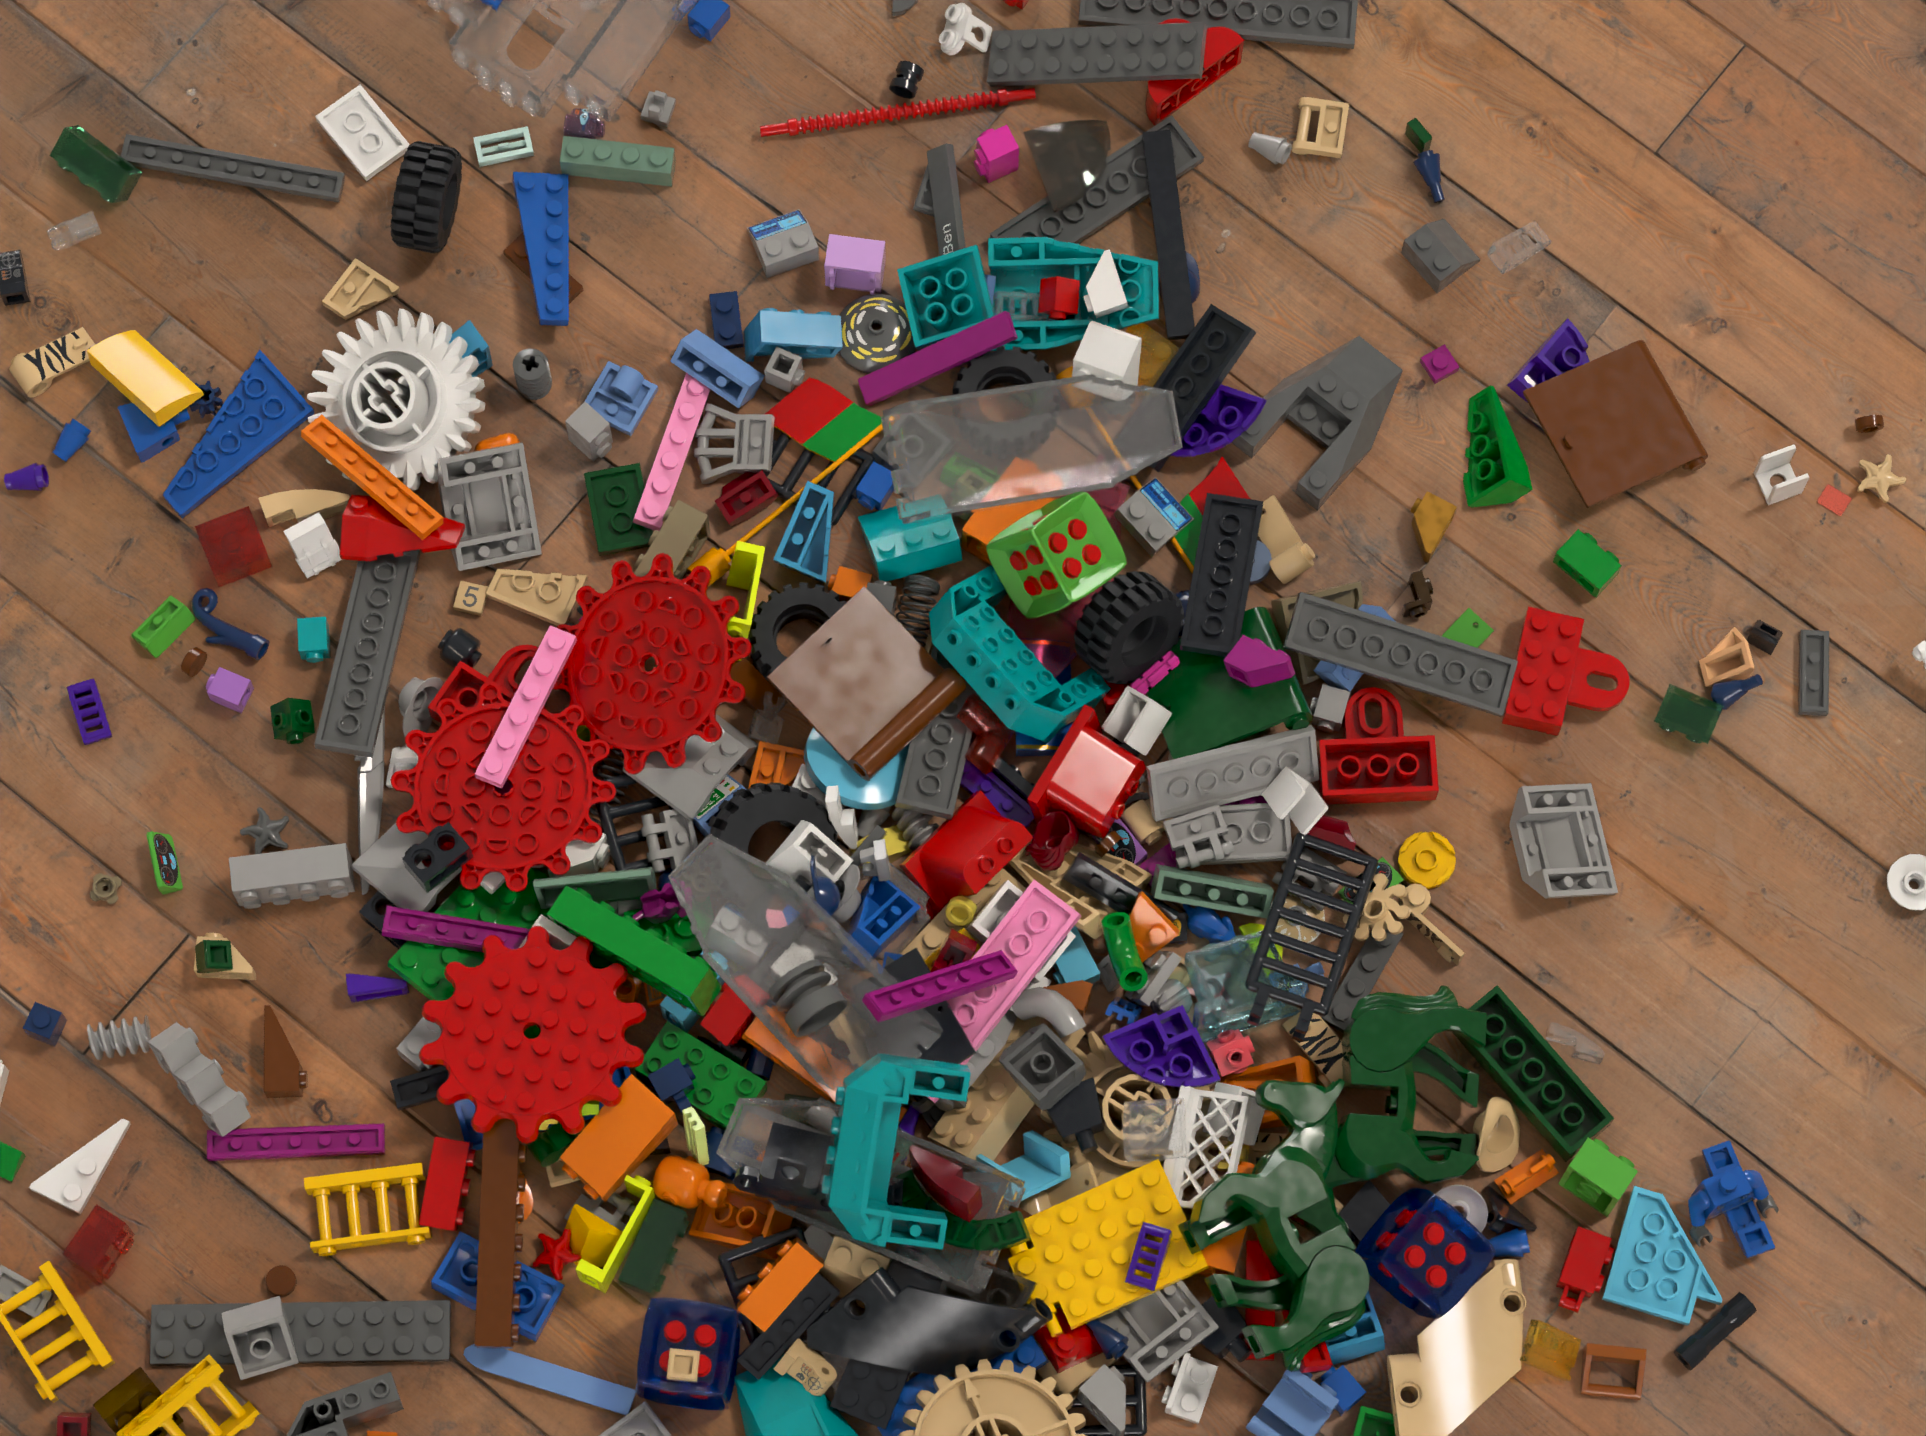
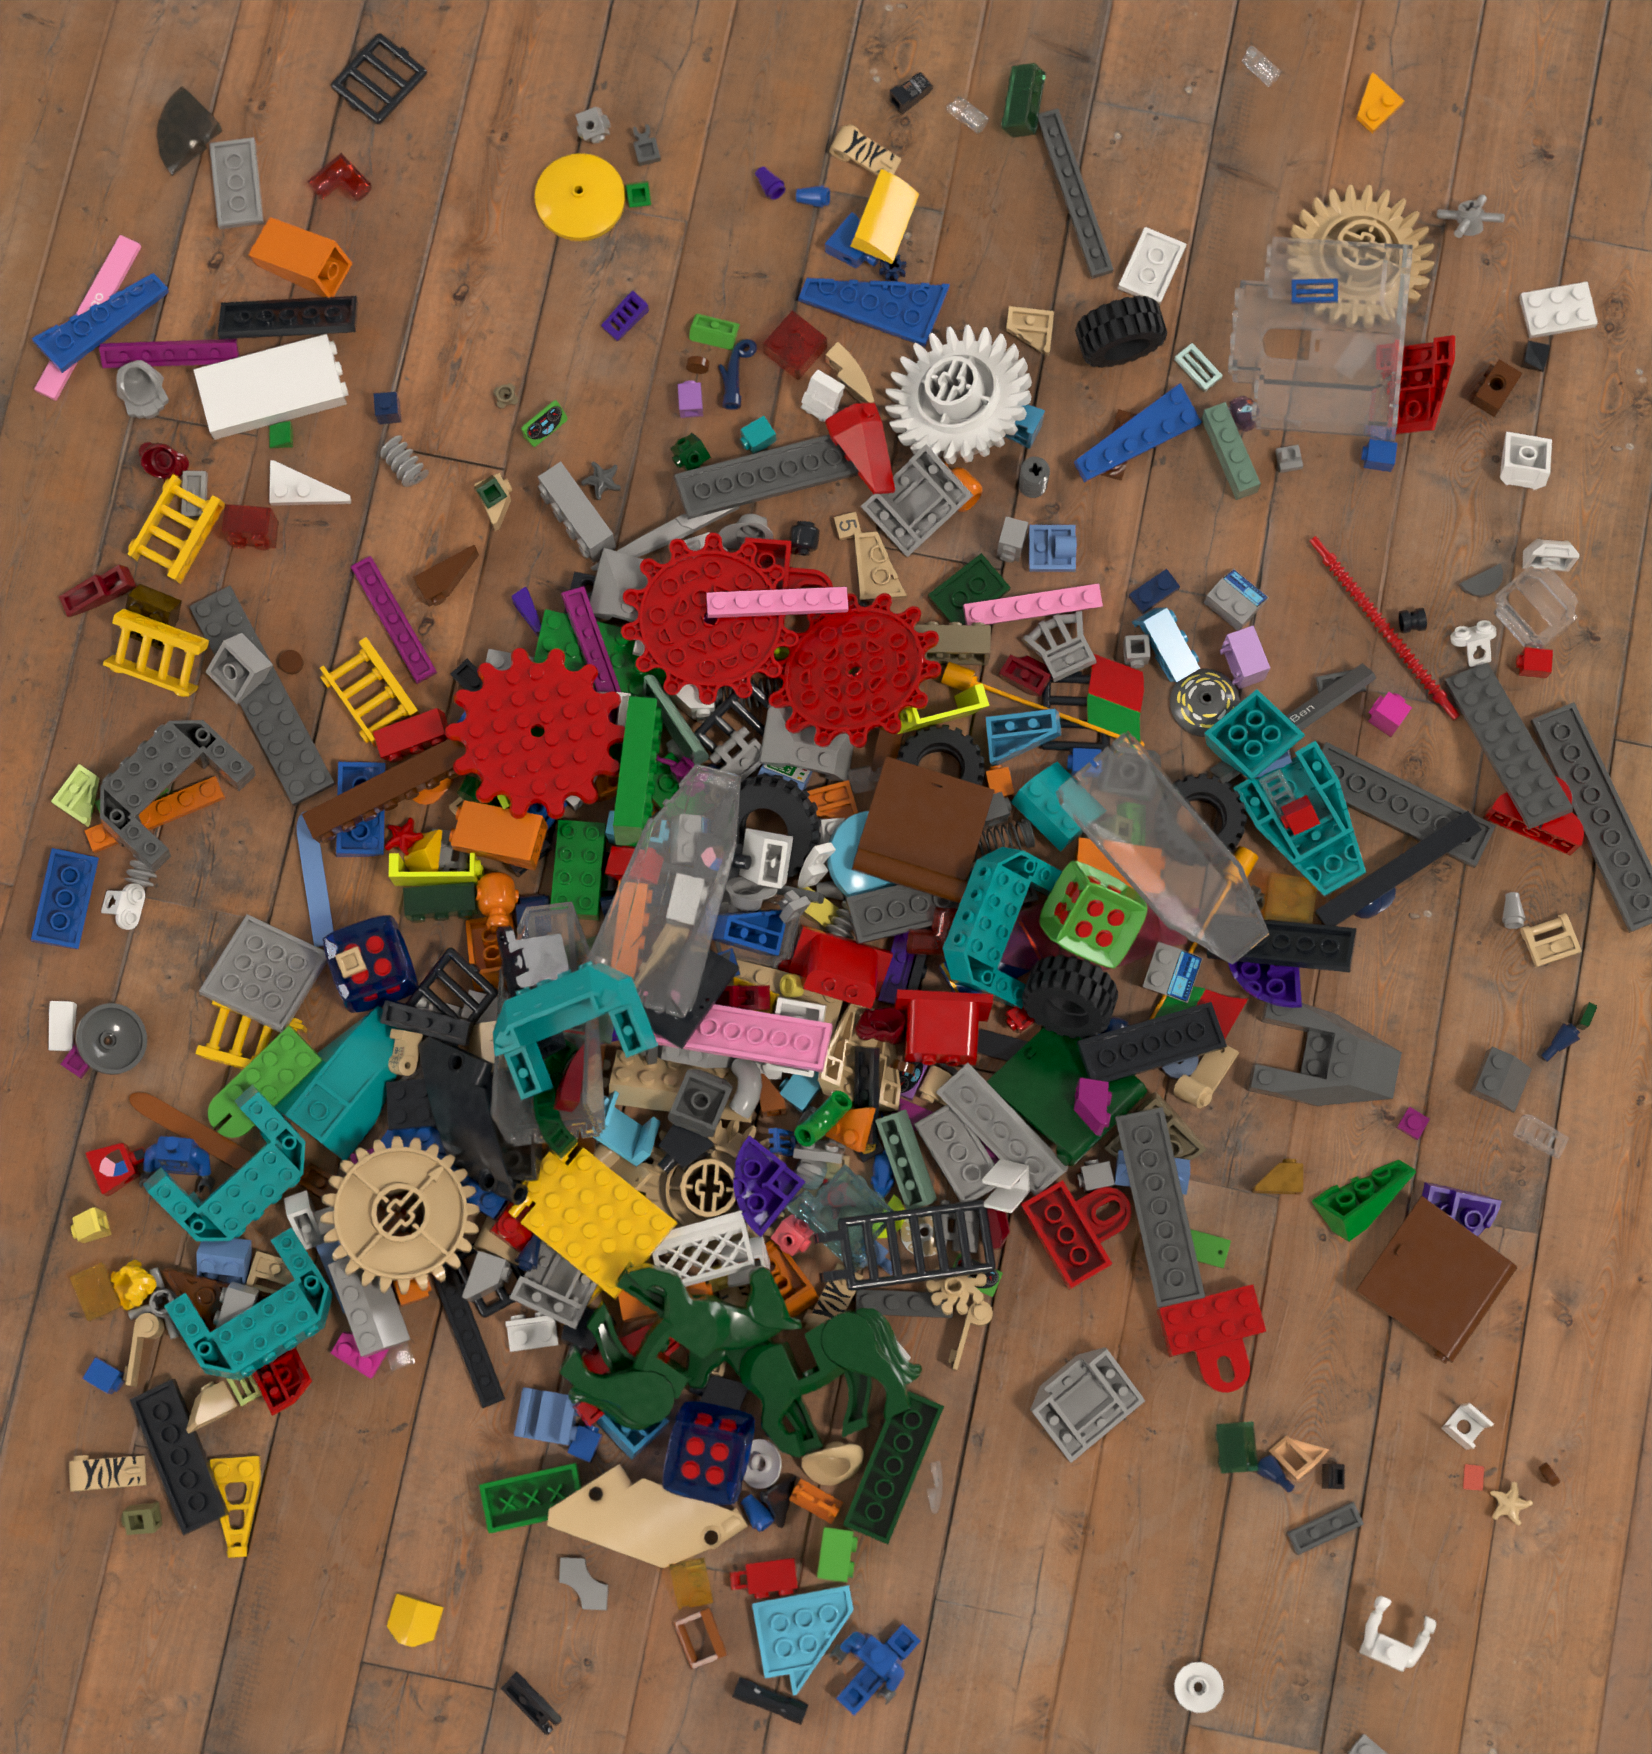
camera: 65 degrees right, 5 degrees up
(199, 1079) = (401, 530): light grey brick -> none
(372, 477) = (891, 408): orange plate -> none
(442, 862) = (627, 604): black brick -> none
(673, 1083) = (557, 850): dark blue brick -> none
(695, 1136) = (528, 886): yellowish green tile -> none
(717, 368) = (1111, 603): medium blue brick -> none
(779, 1283) = (450, 999): orange brick -> none
(807, 998) = (661, 904): dark grey wheel -> none
(825, 890) = (743, 878): dark blue cap -> none
(937, 358) = (1204, 753): magenta tile -> none
(939, 986) = (706, 995): magenta tile -> none
(1069, 157) = (1417, 768): clear smoke brick -> none
(1105, 288) = (1323, 844): white slope -> none
(1108, 354) = (1270, 874): white slope -> none
(1136, 720) = (1005, 1039): white piece -> none
(1154, 1129) = (696, 1207): clear slope -> none
(1156, 673) = (1049, 1034): dark pink axle -> none
(1162, 1247) = (607, 1258): dark purple slope -> none
(1197, 828) = (946, 1124): light grey plate -> none
(1421, 591) = (1226, 1199): dark brown bracket -> none
(1426, 859) = (1019, 1307): yellow tile -> none
(1587, 562) = (1316, 1312): green brick -> none

